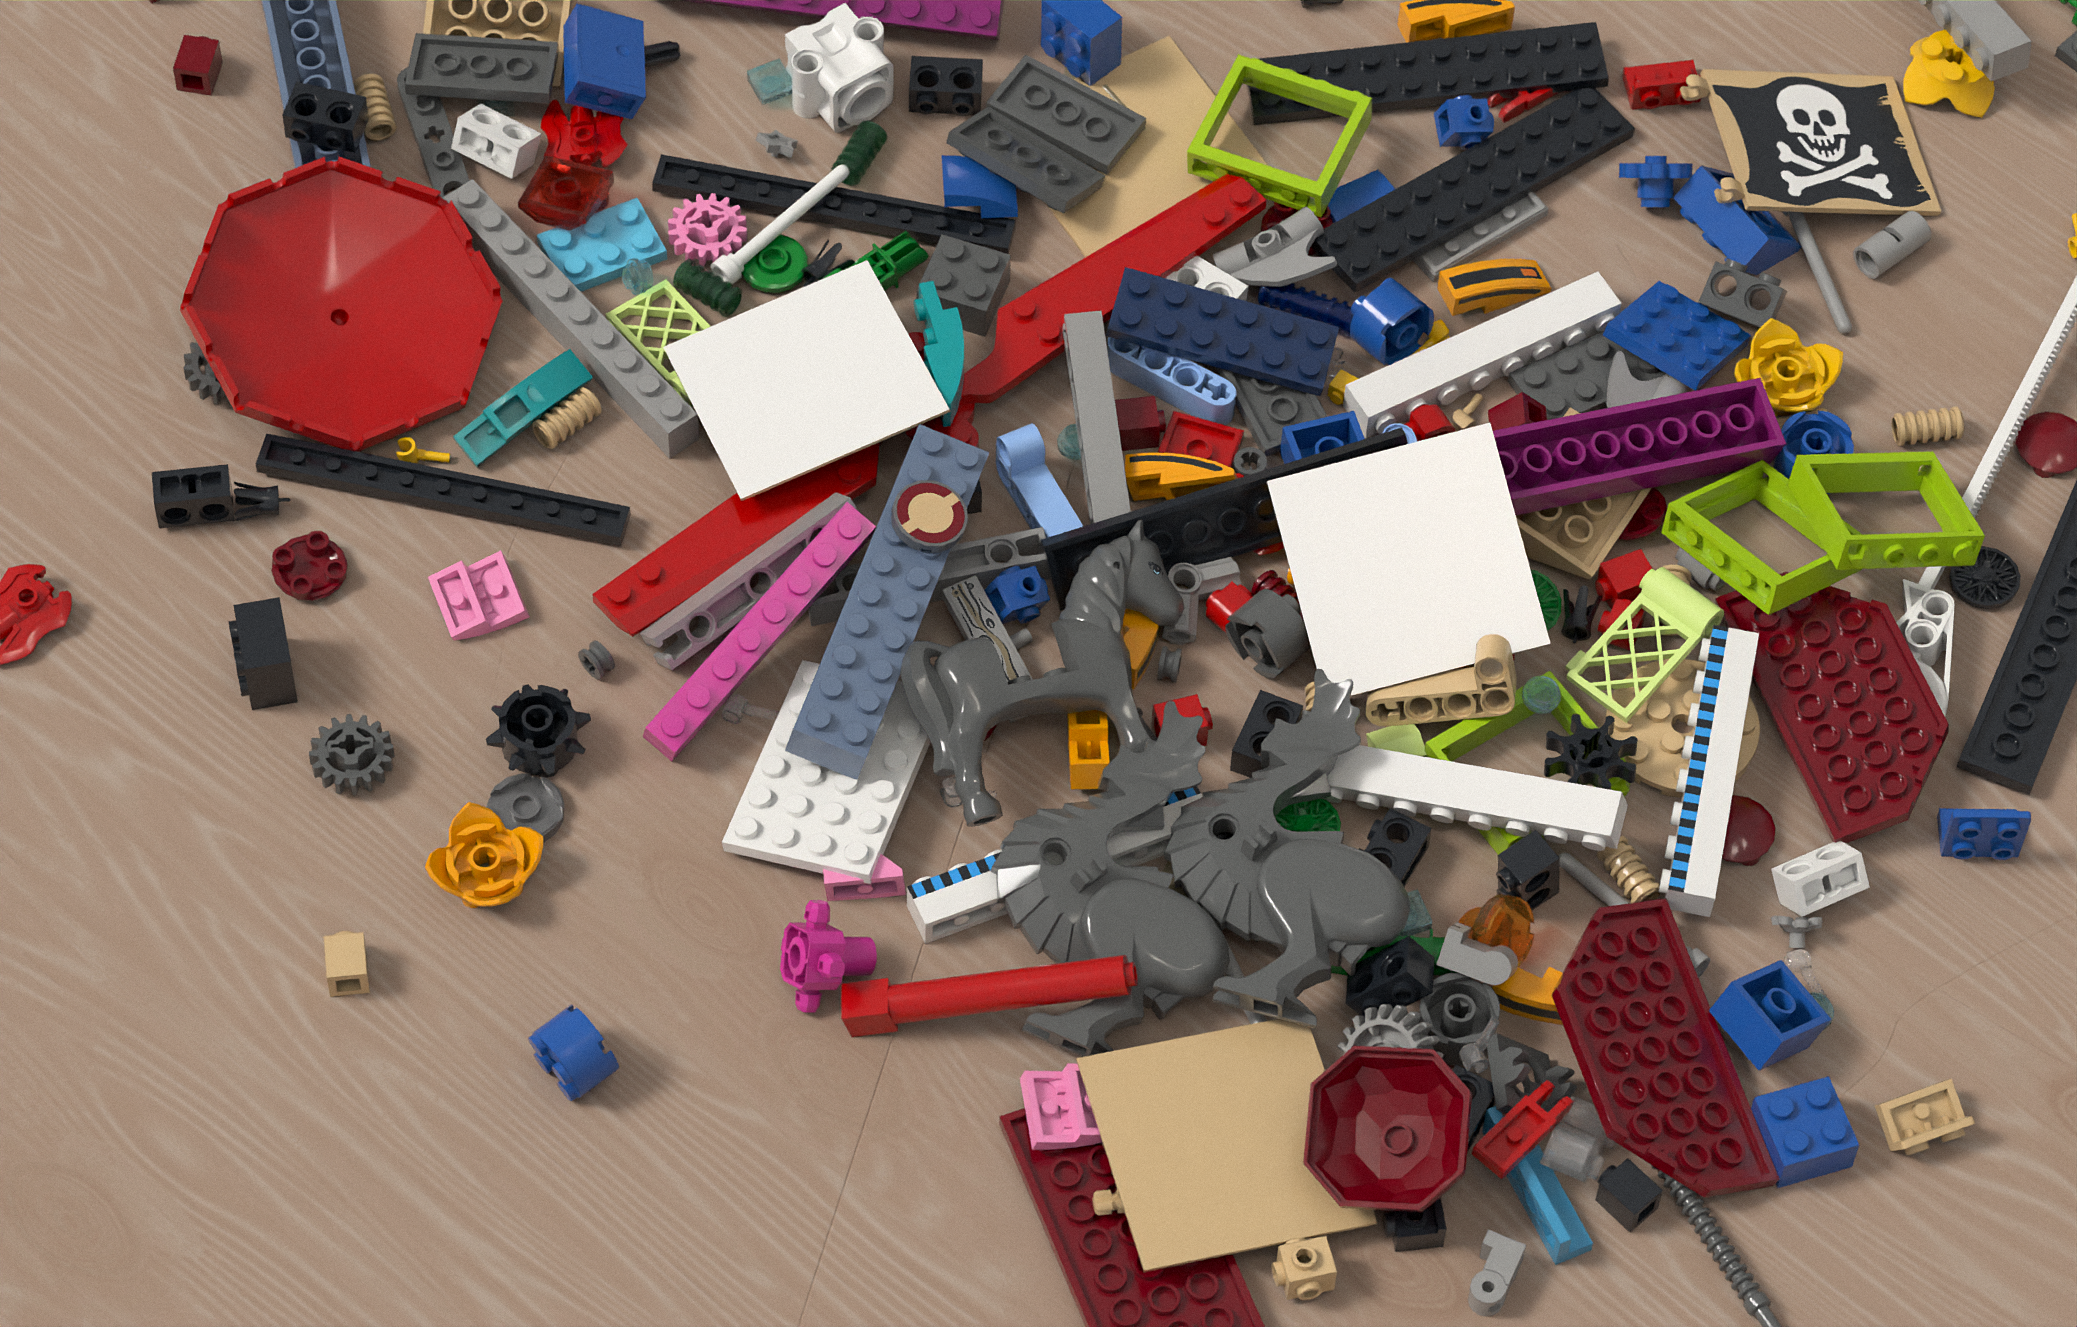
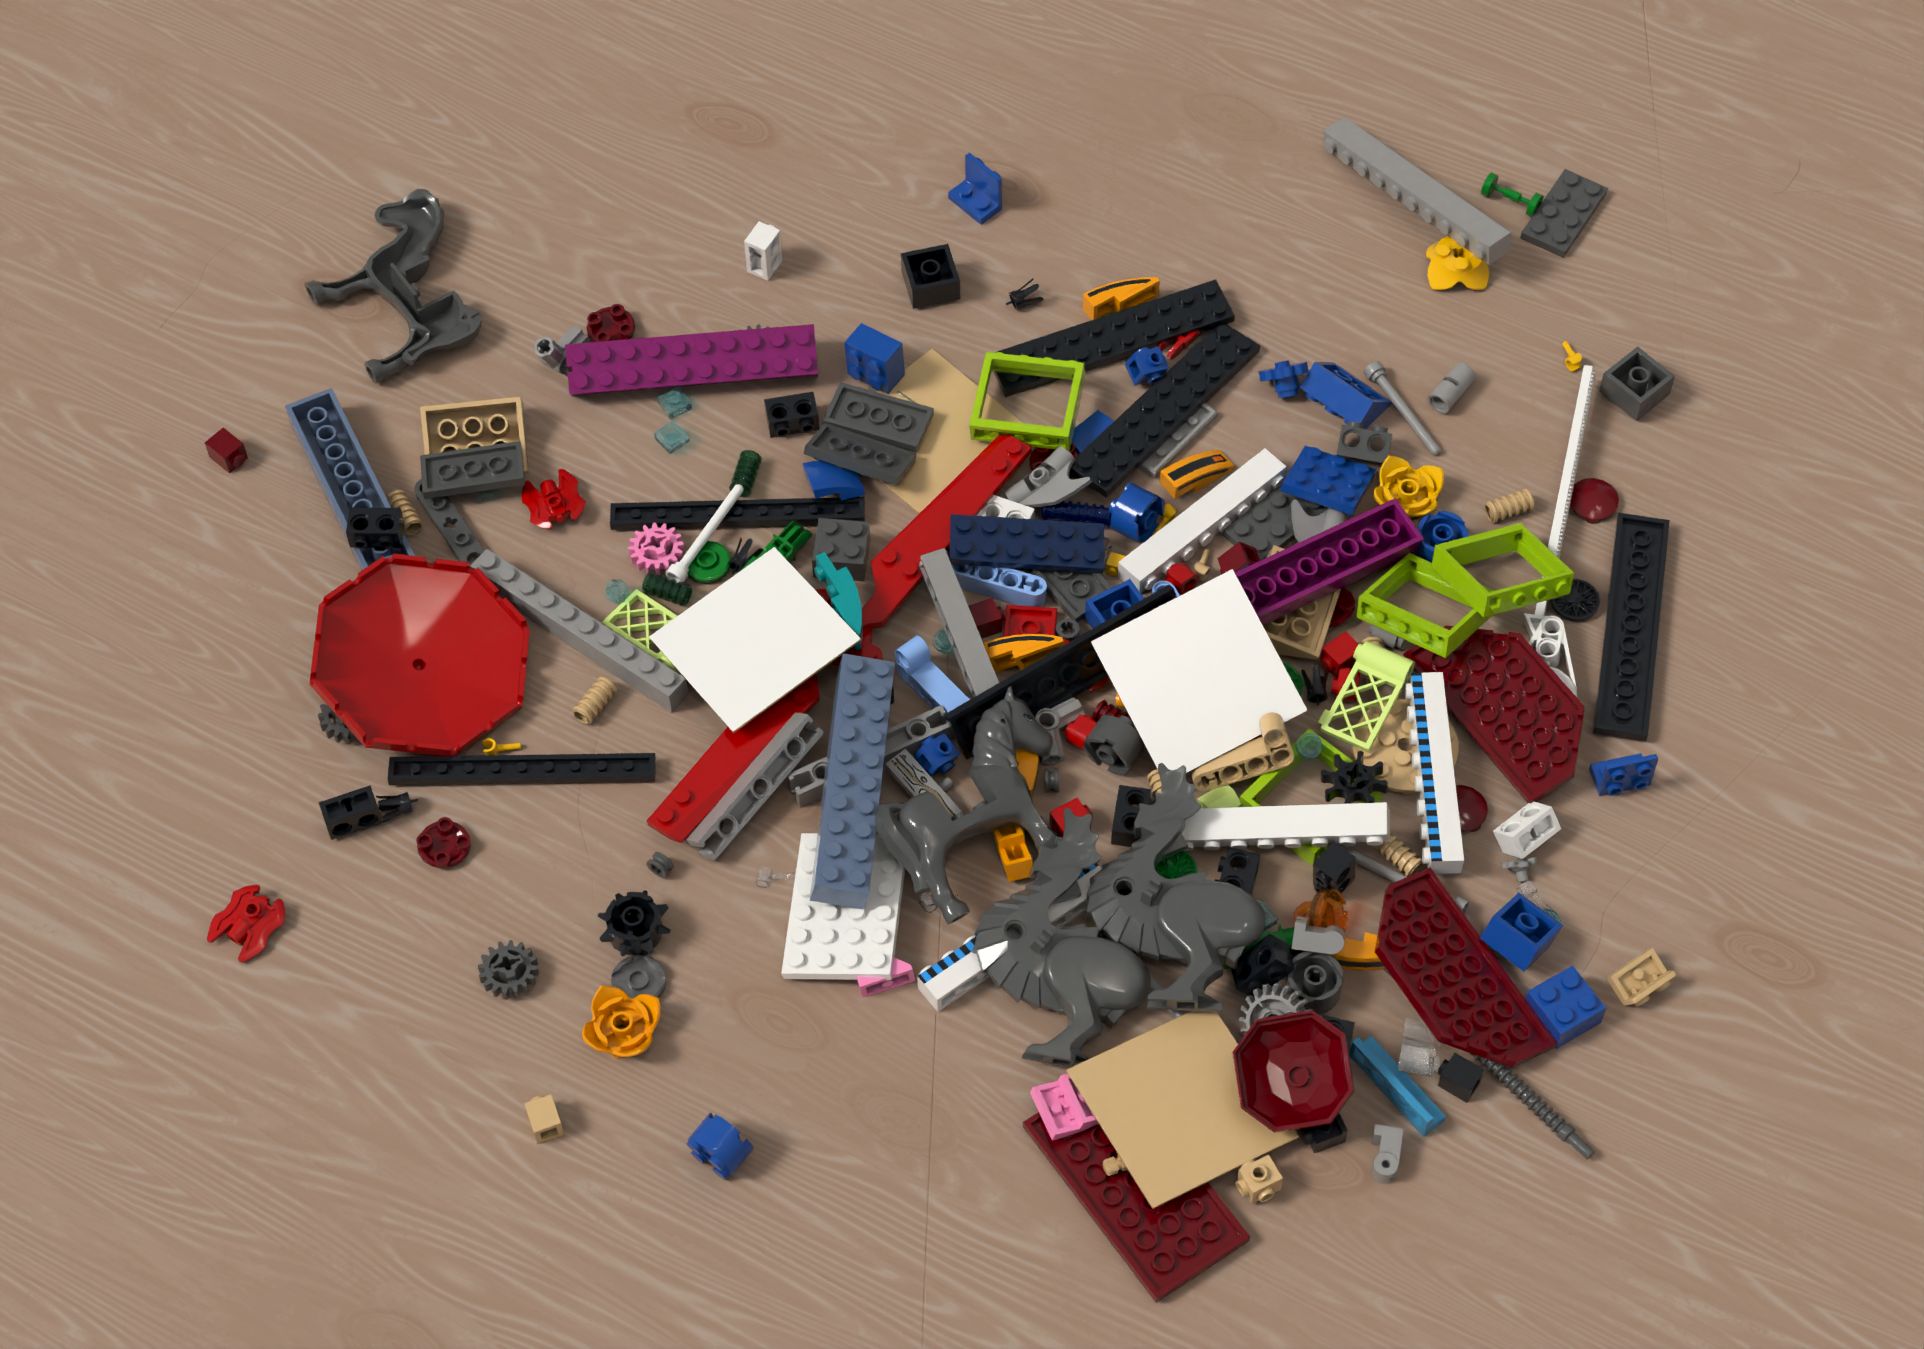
camera: 10 degrees left, 0 degrees up
(197, 64) = (273, 509): dark red brick -> none
(262, 654) = (429, 913): black brick -> none
(478, 597) = (566, 839): bright pink slope -> none
(496, 141) = (495, 518): white brick -> none
(522, 406) = (562, 699): teal slope -> none
(566, 193) = (553, 544): clear red slope -> none
(603, 245) = (586, 573): medium azure plate -> none
(608, 60) = (558, 446): blue piece -> none
(759, 631) = (769, 821): dark pink brick -> none
(777, 143) = (687, 478): light grey piece -> none
(778, 28) = (674, 403): none -> clear light blue plate
(819, 955) = (871, 1038): dark pink piece -> none
(839, 69) = (718, 419): white piece -> none
(880, 1006) = (922, 1063): red brick -> none
(929, 516) = (867, 716): tile -> none
(1473, 1054) = (1332, 1004): clear hand -> none
(1508, 1070) = (1385, 1014): dark grey piece -> none
(1520, 1131) = (1379, 1051): red hinge -> none
(1657, 84) = (1270, 312): red bracket -> none
(1815, 142) = (1383, 330): flag -> none

